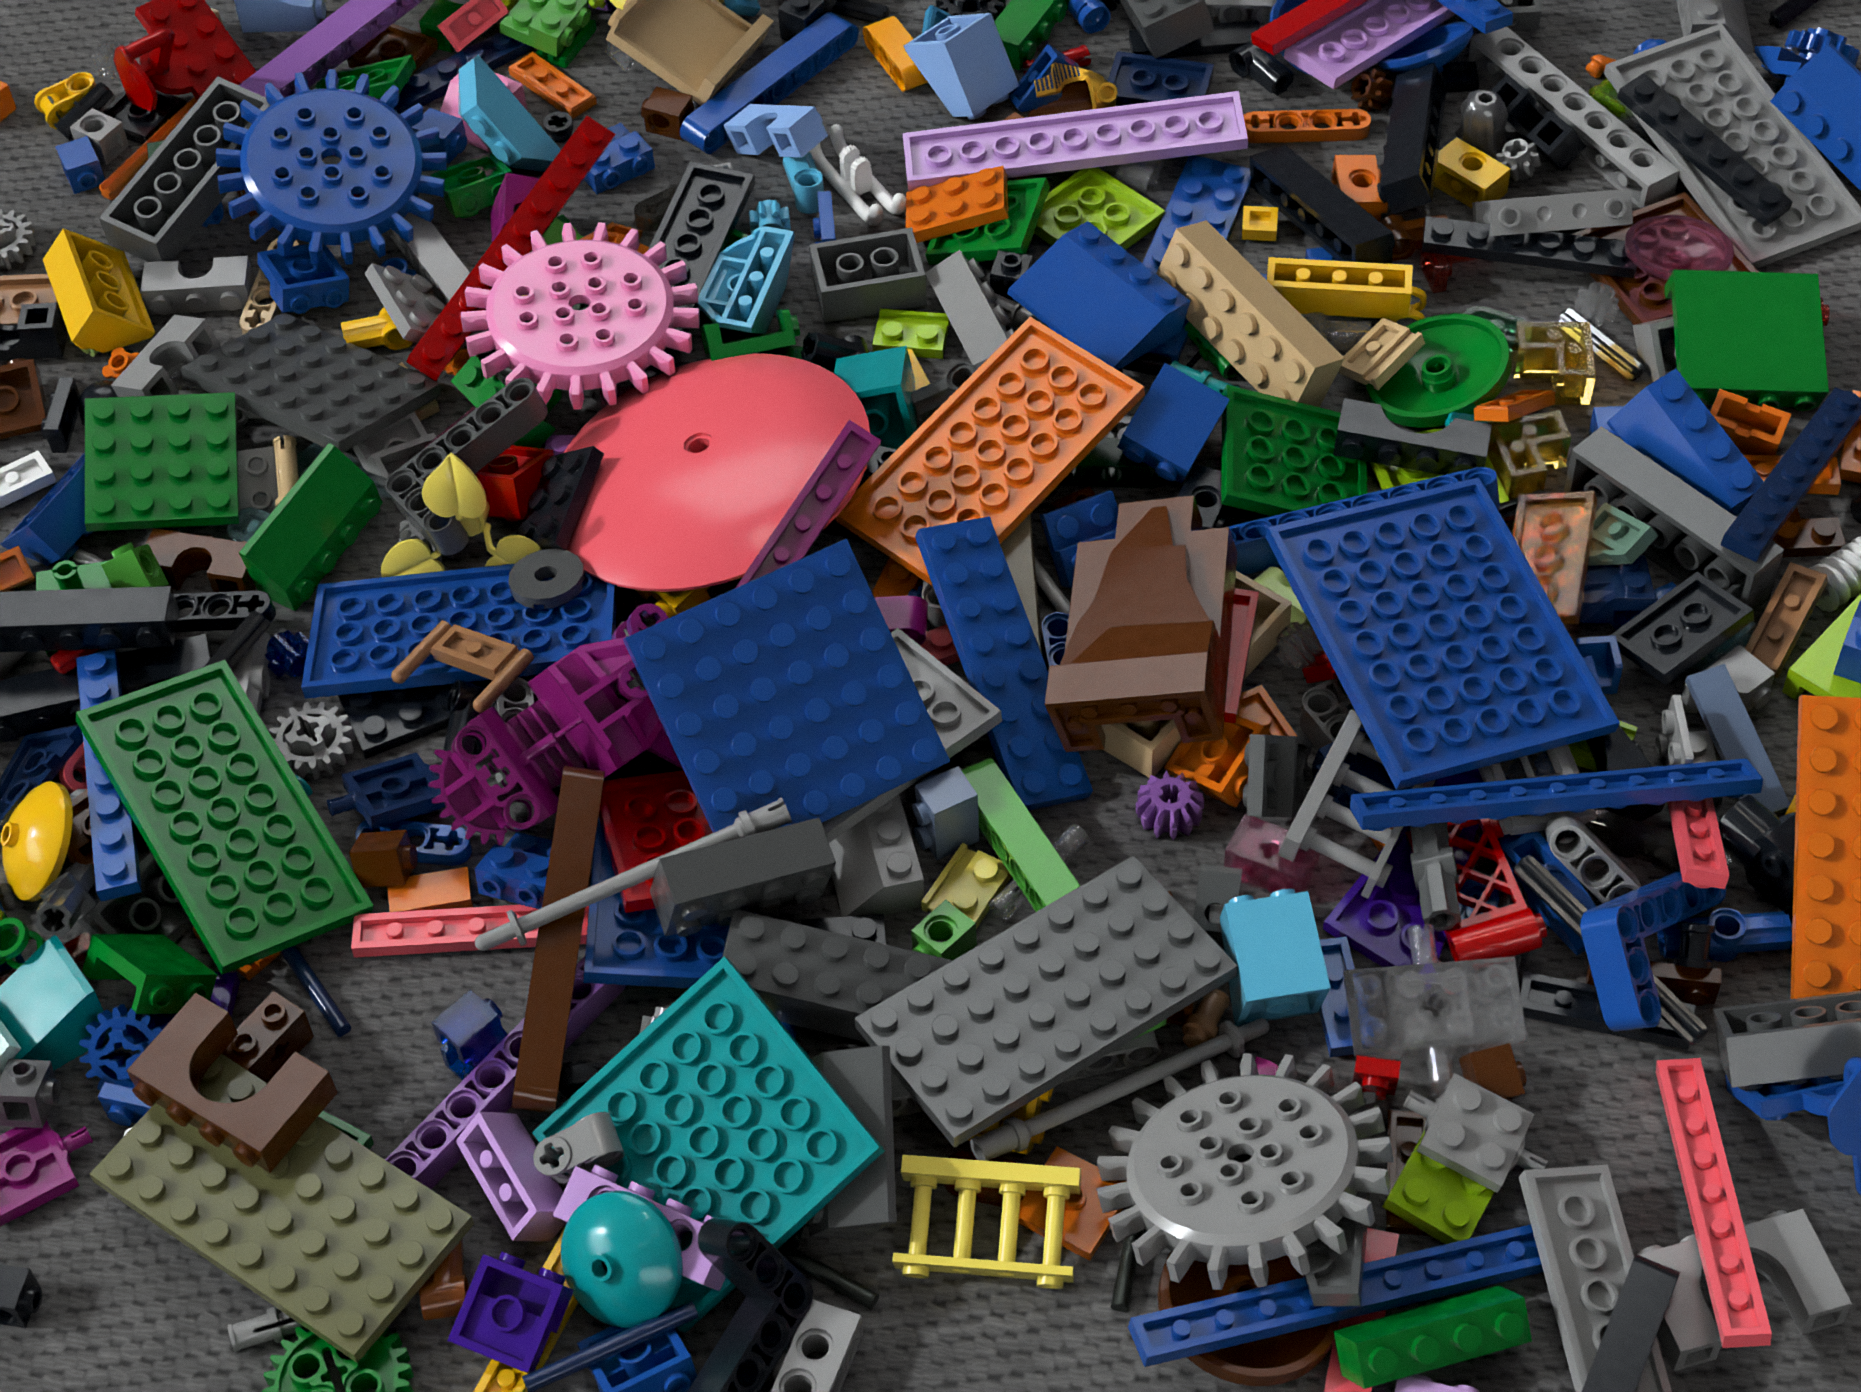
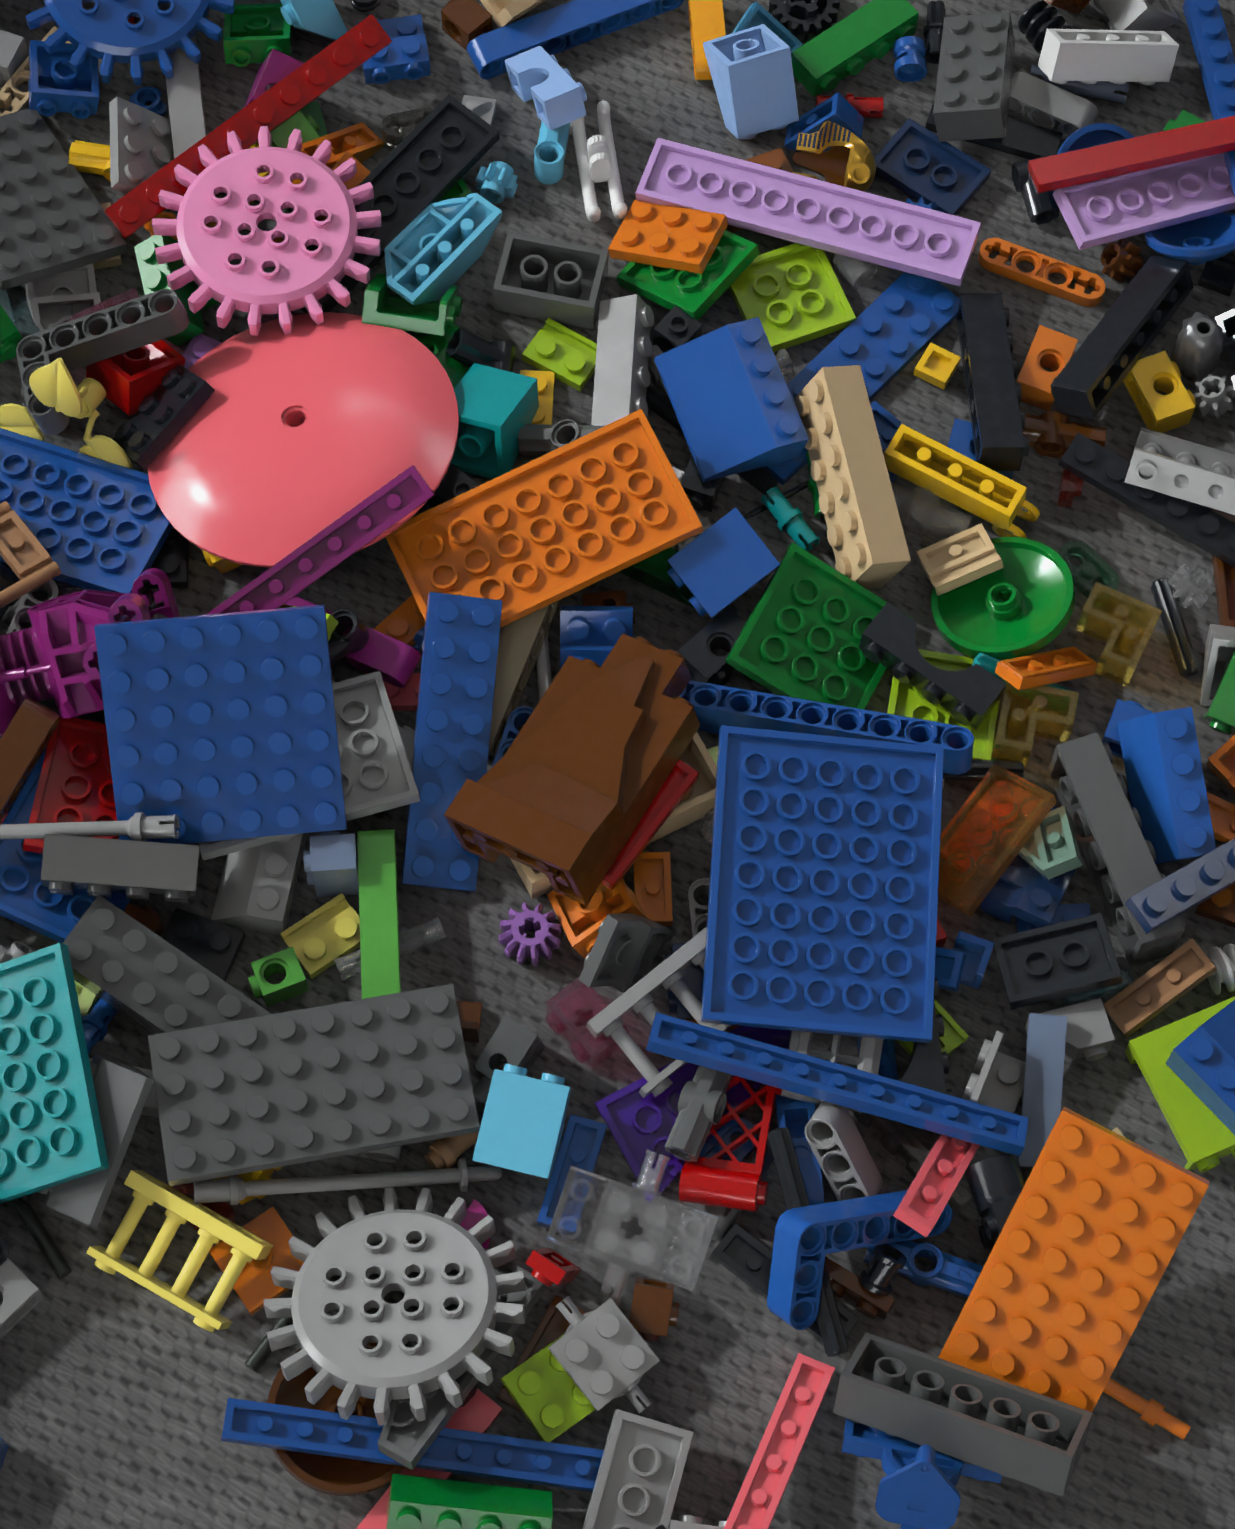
camera: 20 degrees right, 15 degrees up
(559, 564) = (116, 475): dark grey tile -> none
(824, 224) = (541, 209): blue plate -> none

